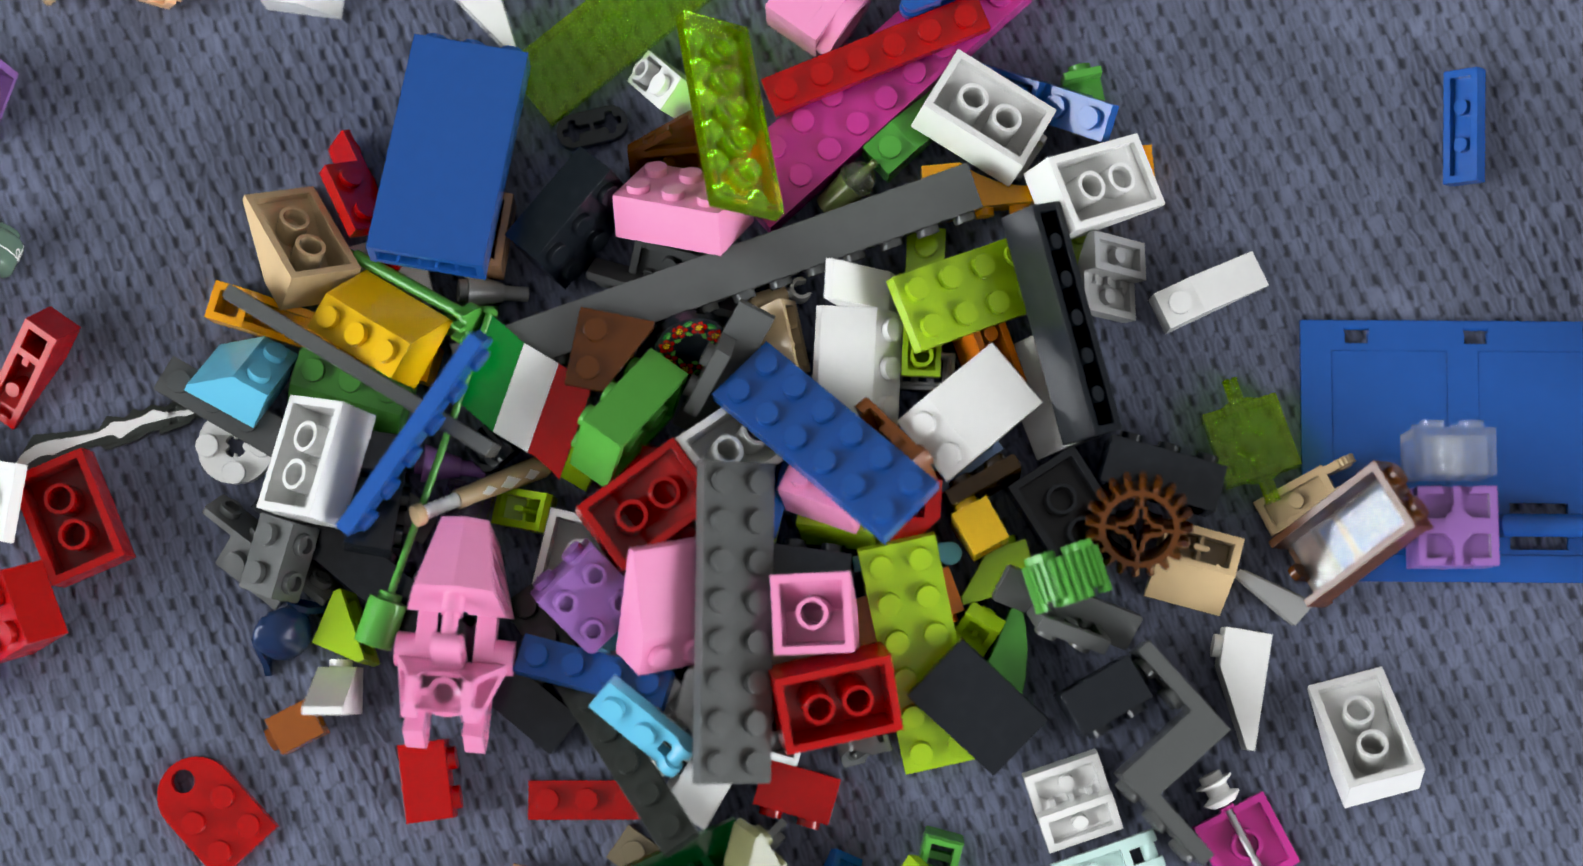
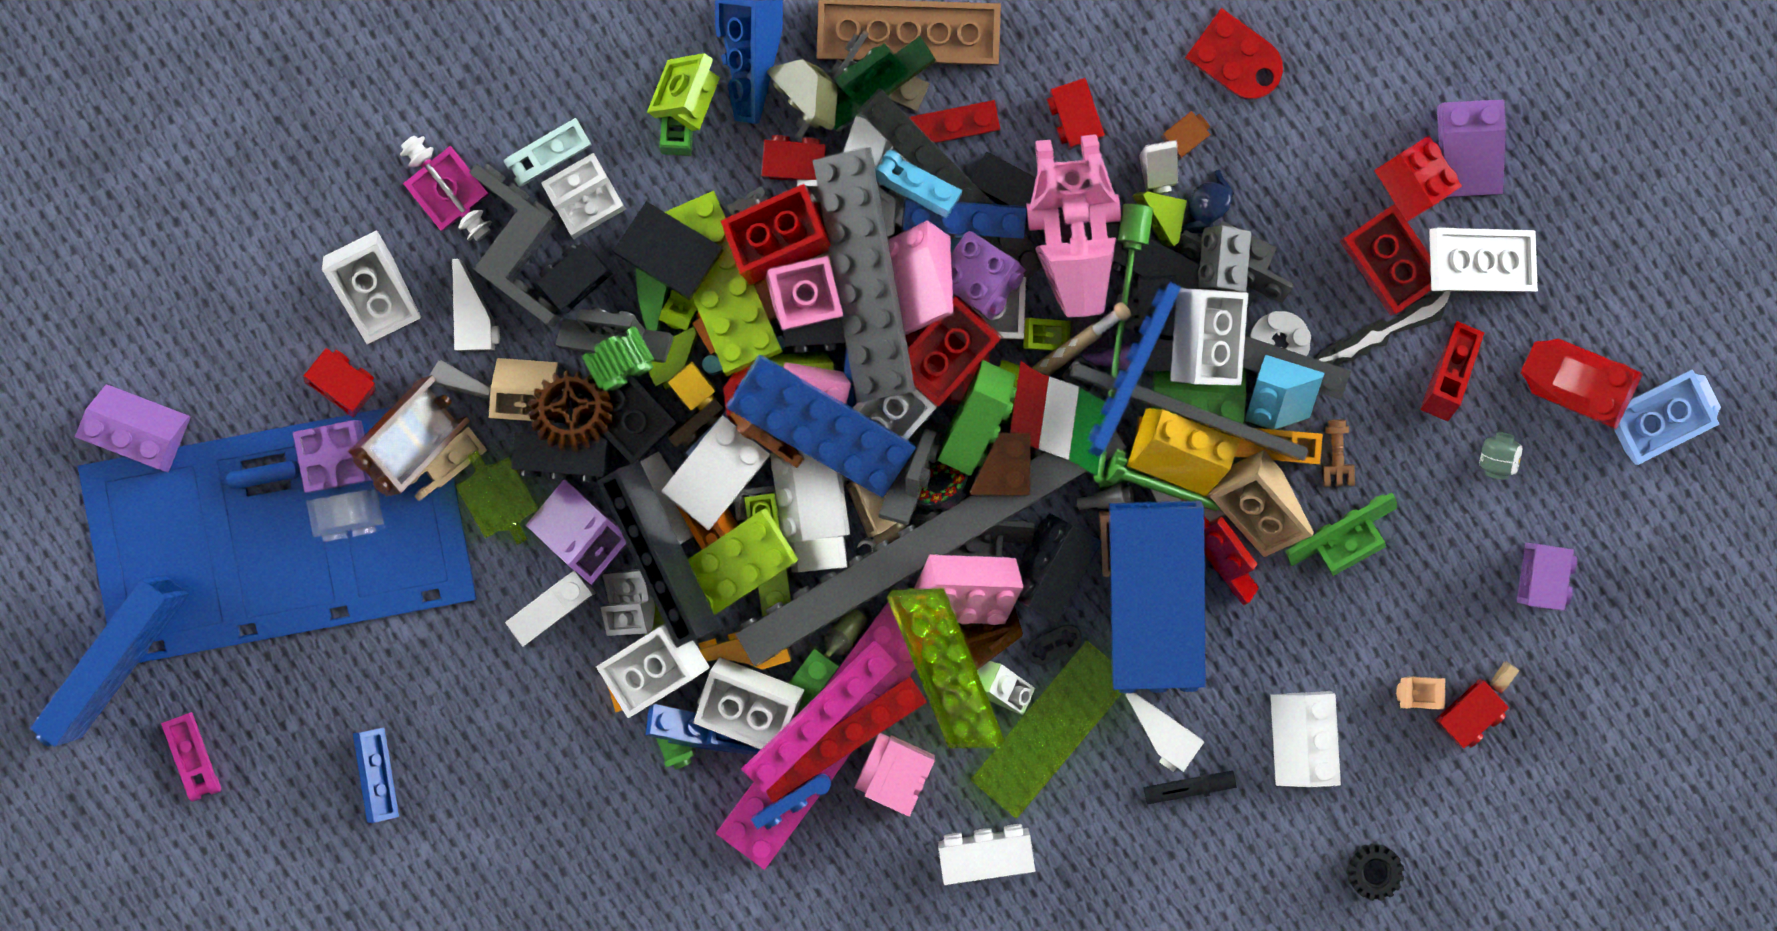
camera: 160 degrees right, 5 degrees up
(189, 324) = (1336, 428): none -> medium nougat hinge
(204, 184) = (1348, 539): none -> bright green bracket
(898, 84) = (819, 716): none -> dark pink plate
(1157, 376) = (578, 532): none -> medium lavender slope
(1424, 623) = (340, 381): none -> red brick

